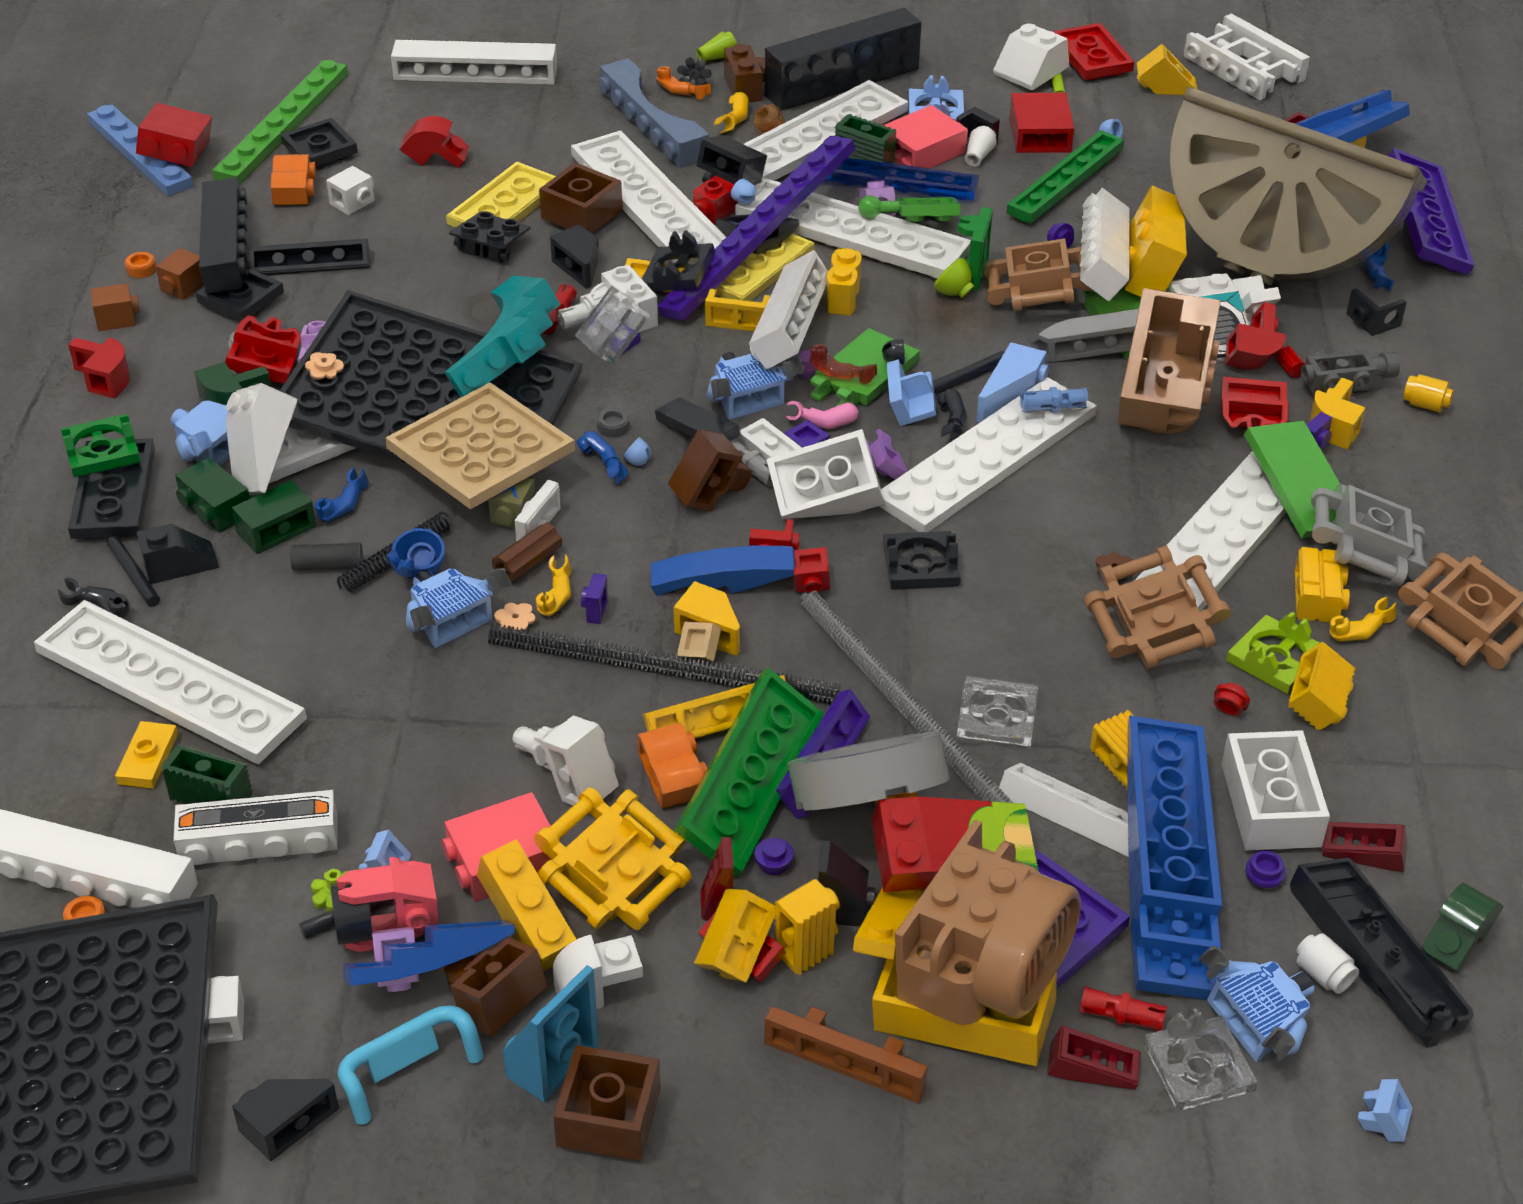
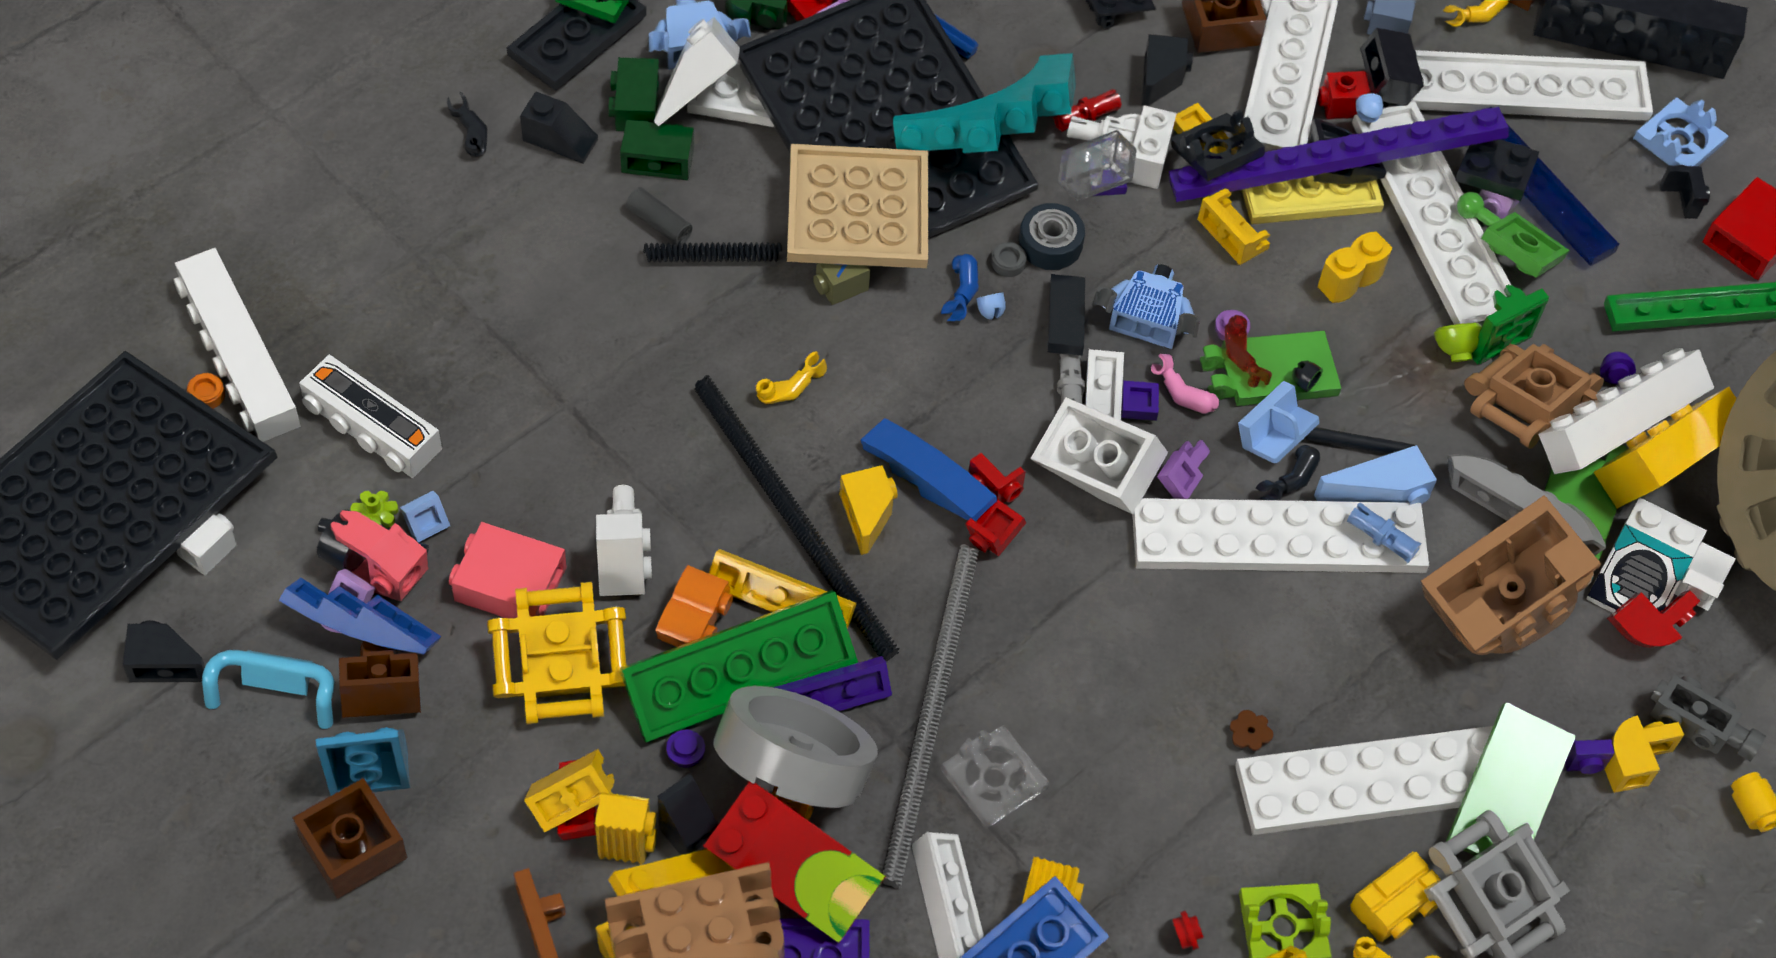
camera: 40 degrees right, 15 degrees up
(133, 571) = (515, 131): black bar -> none
(146, 754) = (370, 291): yellow plate -> none
(171, 681) = (443, 242): white plate -> none
(204, 777) = (372, 348): dark green brick -> none
(323, 365) = (817, 37): light nougat plant -> none
(330, 509) = (727, 176): blue arm -> none
(416, 551) = (713, 268): blue piece -> none
(452, 603) = (691, 333): light blue torso -> none
(515, 615) = (735, 383): light nougat plant -> none
(524, 901) = (456, 639): yellow brick -> none
(528, 551) = (803, 332): reddish brown axle -> none
(538, 510) = (847, 302): white plate -> none
(595, 598) = (805, 417): dark purple plate -> none
(611, 960) = (450, 729): white brick -> none
(628, 388) = (1052, 236): none -> wheel
(699, 641) = (833, 520): tan plate -> none
(708, 471) = (1012, 371): reddish brown brick -> none
(717, 879) = (613, 739): dark red slope -> none
(768, 118) = (1497, 39): clear orange piece -> none
(789, 310) = (1255, 264): white brick -> none
(863, 175) = (1498, 167): none -> black plate
(870, 139) = (1551, 130): dark green brick -> none
(920, 576) = (1100, 622): black piece -> none
(928, 138) = (1618, 166): coral brick -> none
(980, 143) = (1667, 210): white cone -> none
(1158, 609) = (1218, 800): medium nougat brick -> none
(1253, 402) = (1569, 682): red plate -> none
(1290, 361) = (1675, 655): red axle -> none

